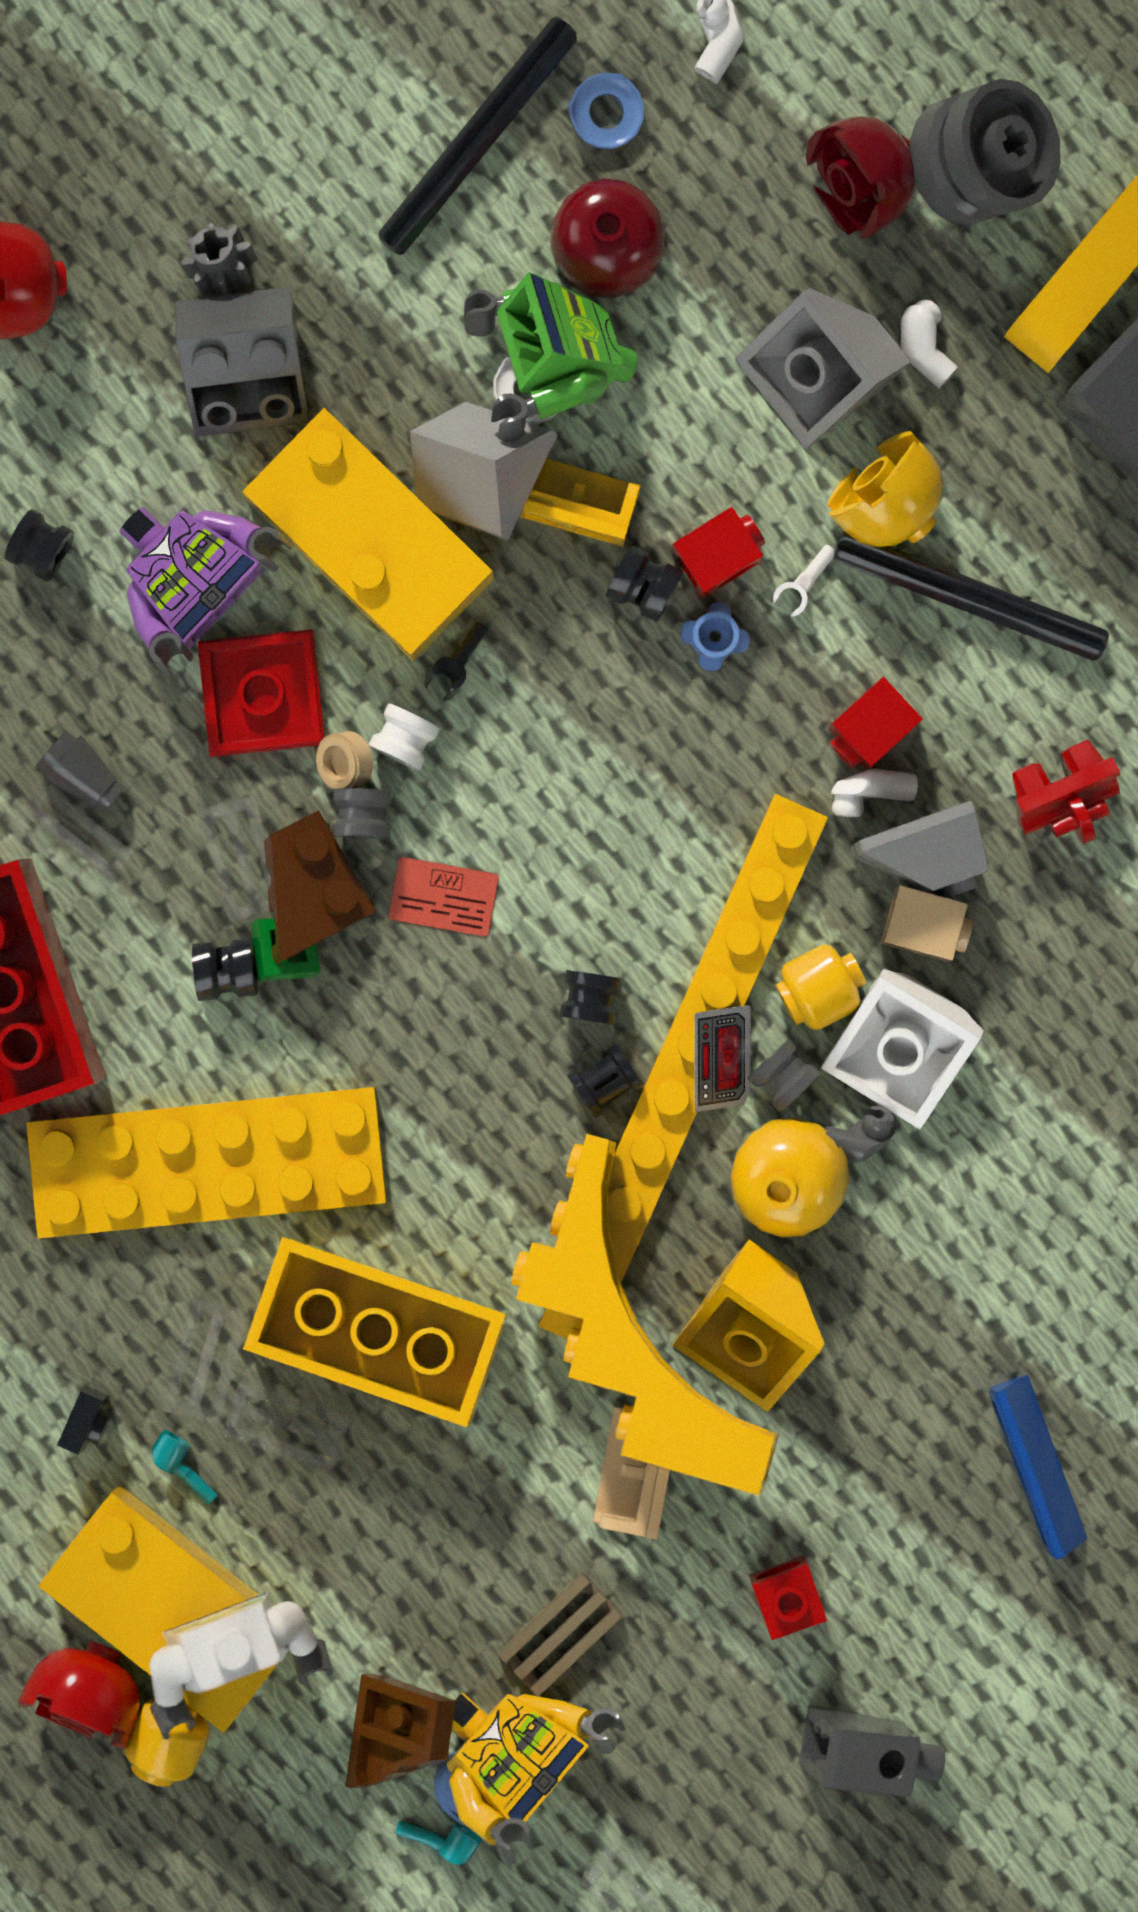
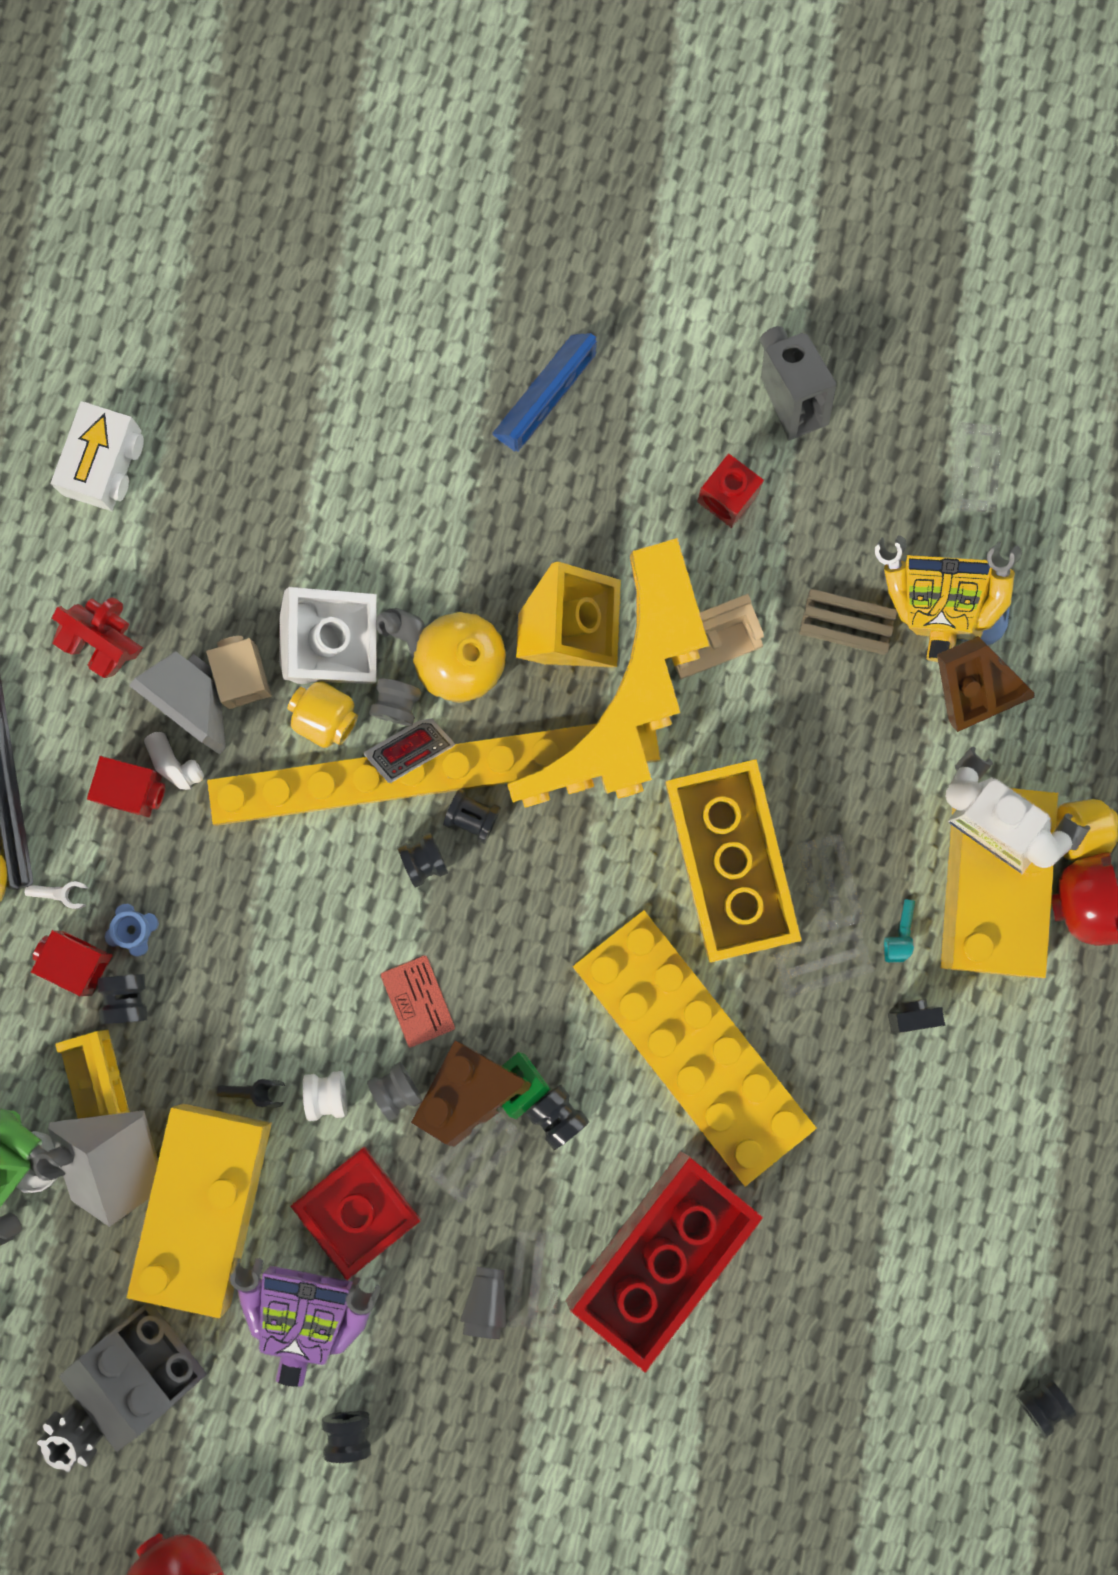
camera: 125 degrees left, 5 degrees down
(344, 760) = (365, 1126): tan tile -> none
(455, 1848) = (1027, 602): teal hand -> none

